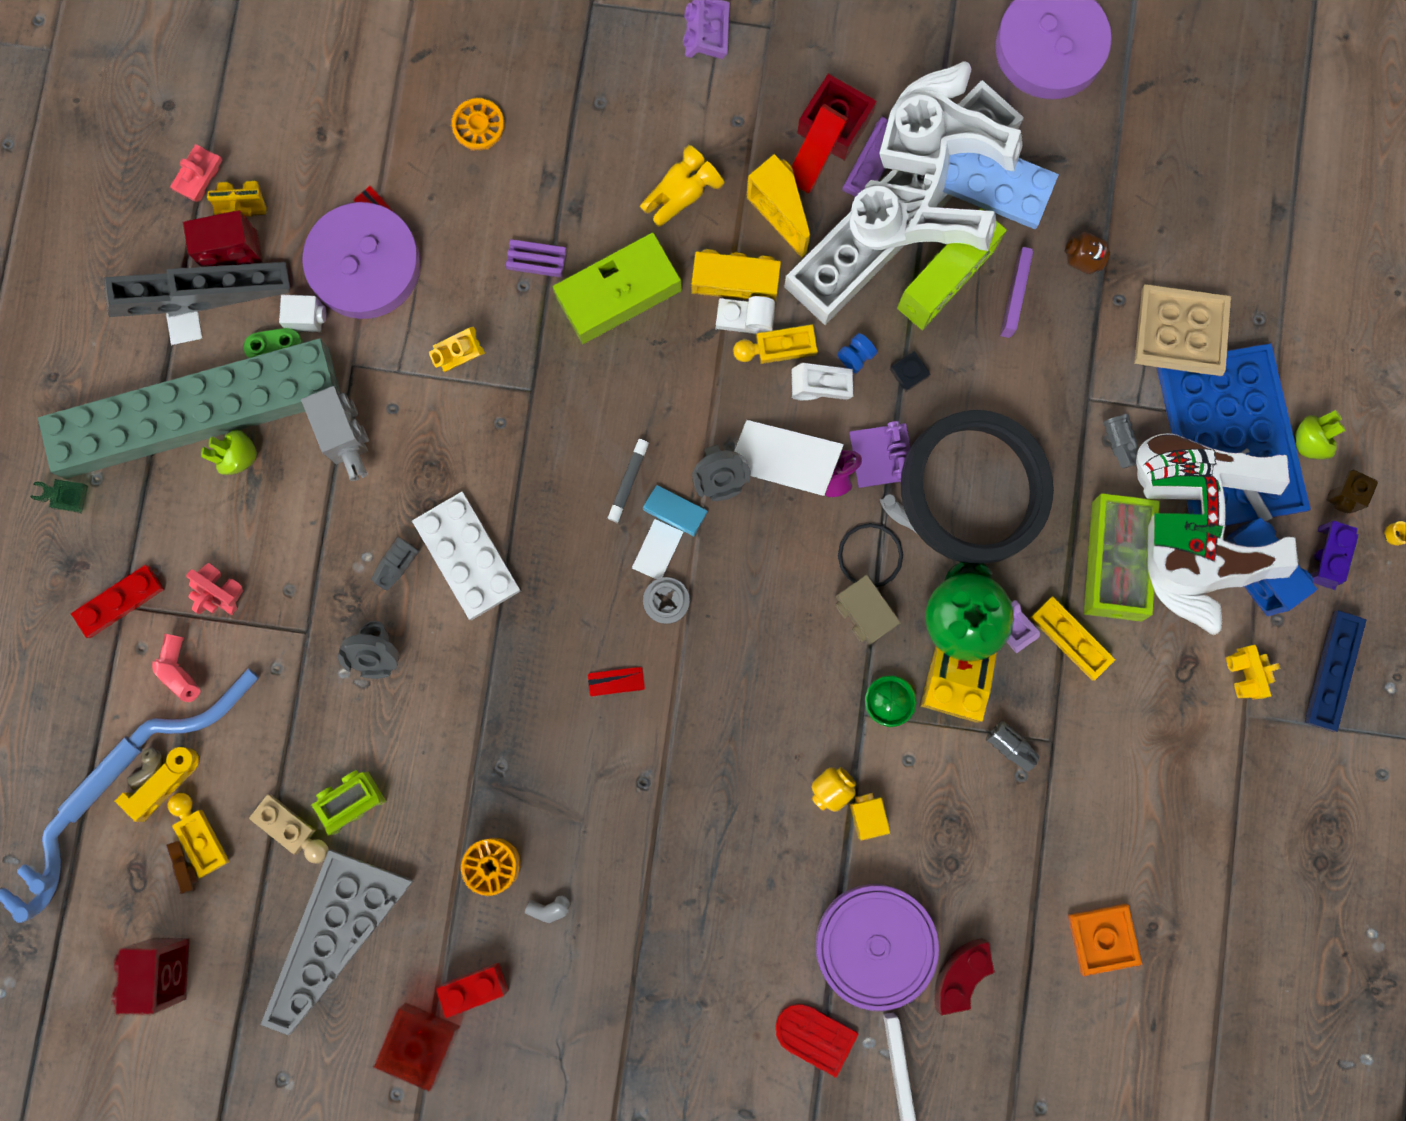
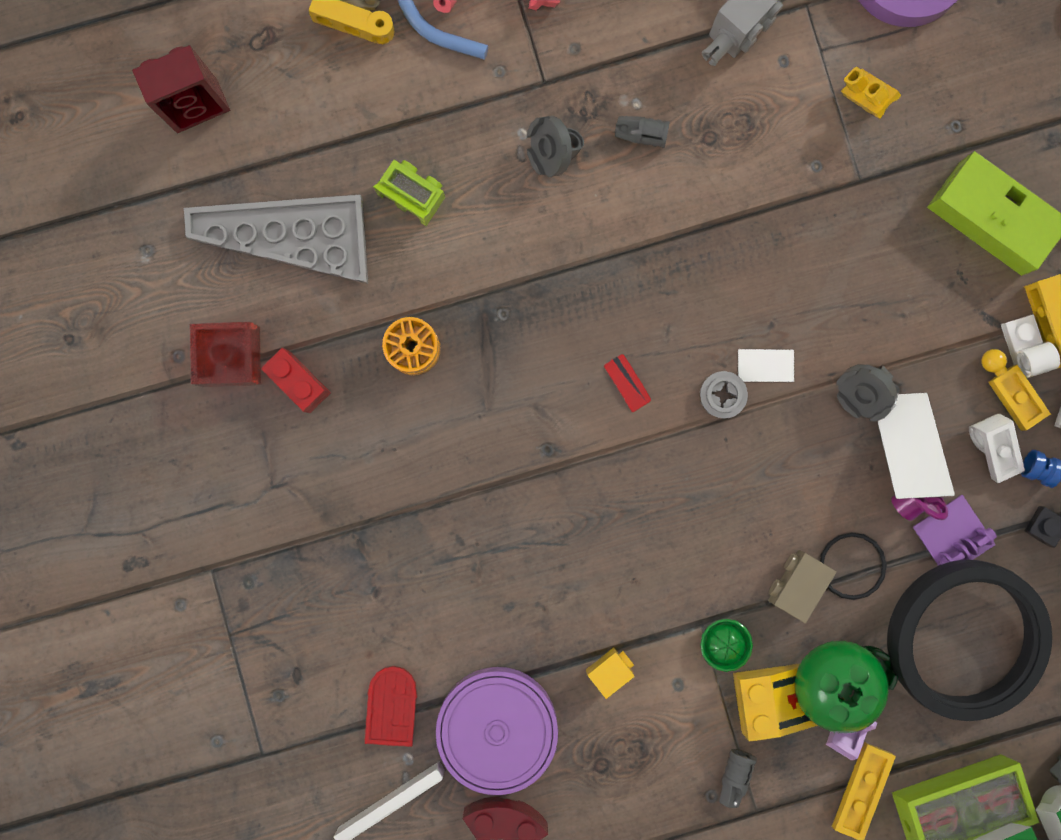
camera: 65 degrees right, 5 degrees up
(184, 874) = (281, 78): reddish brown plate -> none
(196, 836) = (320, 72): yellow plate -> none
(288, 829) = (362, 151): tan plate -> none
(466, 556) = (679, 192): white plate -> none
(539, 248) = (994, 124): medium lavender tile -> none
(550, 912) = (394, 418): light grey arm -> none
(628, 480) = (818, 308): dark grey bar -> none
(675, 510) = (810, 364): medium azure slope -> none
(833, 789) = (621, 627): yellow head -> none
(895, 511) = (906, 574): light grey bar -> none

